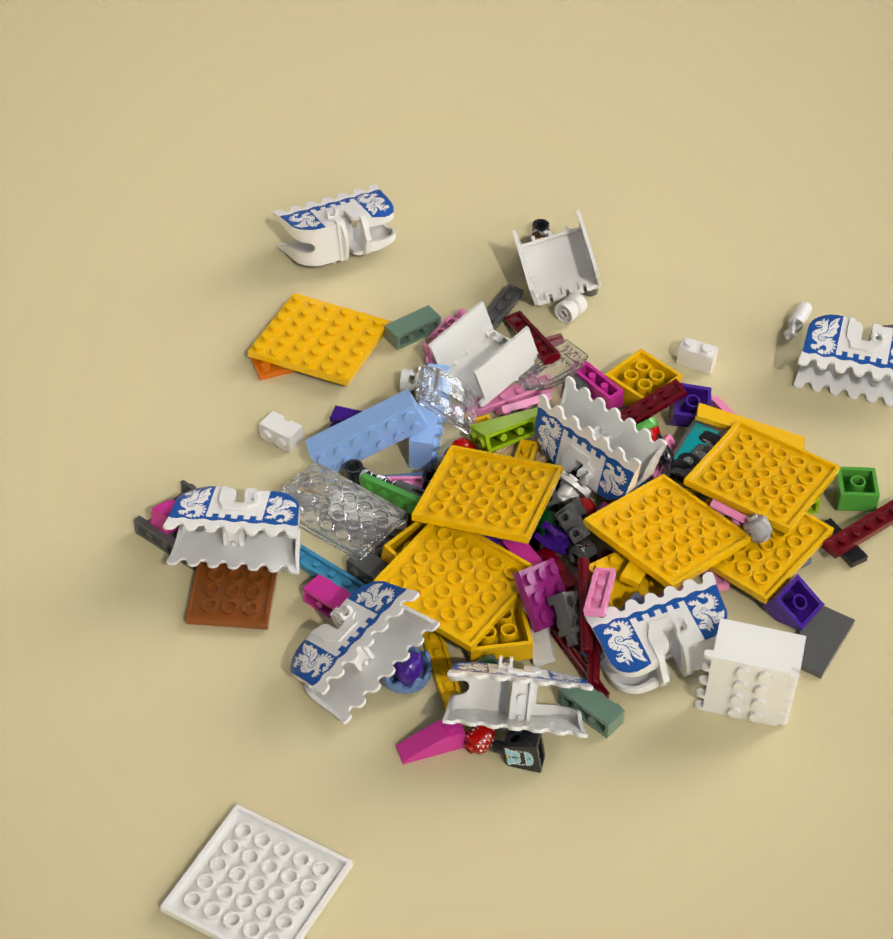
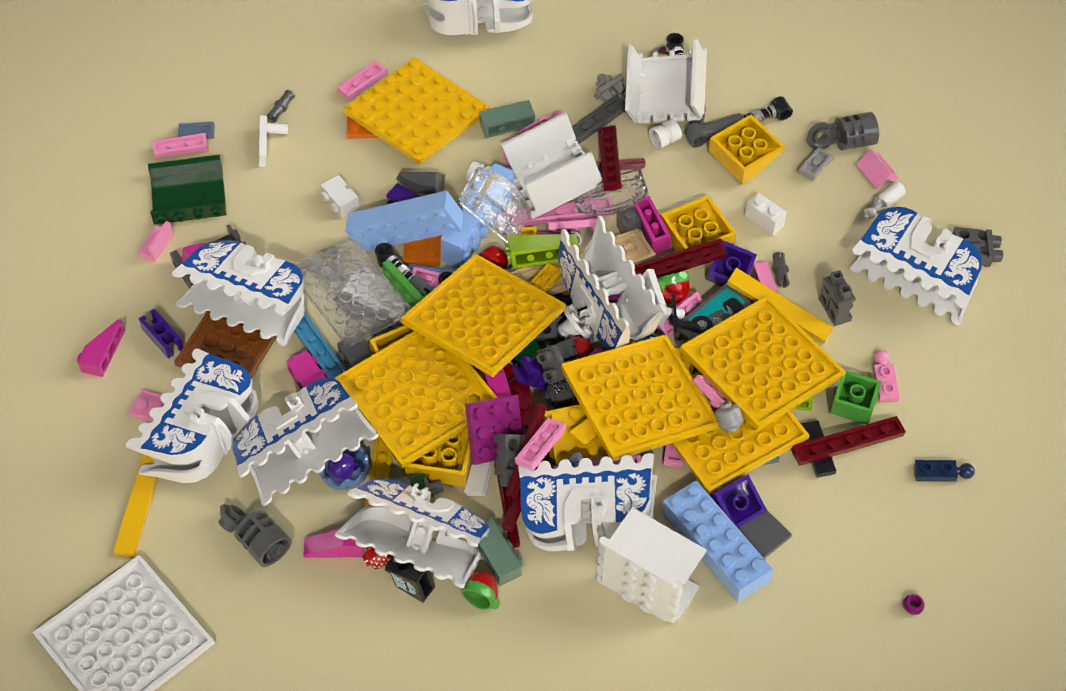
camera: 20 degrees right, 10 degrees up
(92, 422) = (180, 145): none -> bright pink plate
(100, 629) = (99, 352): none -> dark pink slope
(101, 406) = (197, 128): none -> sand blue tile
(110, 516) = (156, 242): none -> bright pink panel
(118, 461) = (187, 189): none -> dark green panel
(158, 597) = (154, 333): none -> dark purple piece
(174, 391) = (264, 128): none -> white piece
(179, 364) = (280, 106): none -> dark grey pin
(182, 668) = (143, 405): none -> bright pink plate
(210, 757) = (136, 512): none -> yellow tile
(244, 661) = (197, 420): none -> white animal
(251, 324) = (362, 80): none -> bright pink plate
(351, 751) = (257, 533): none -> dark grey cylinder
(357, 398) = (423, 181): none -> dark grey slope
(388, 461) = (423, 252): none -> orange plate
(495, 277) = (608, 85): none -> light grey hips
(597, 746) = (481, 591): none -> bright green piece
(604, 300) = (699, 134): none -> piece
(652, 303) = (745, 148): none -> yellow slope
(720, 304) = (815, 164): none -> light grey plate
(733, 399) = (781, 269): none -> dark grey pin
(737, 270) = (846, 132): none -> dark grey cylinder
(776, 296) = (876, 168): none -> bright pink panel
(800, 407) = (838, 298): none -> dark grey hips
(824, 655) = (728, 550): none -> light blue brick
(870, 461) = (886, 373): none -> bright pink plate

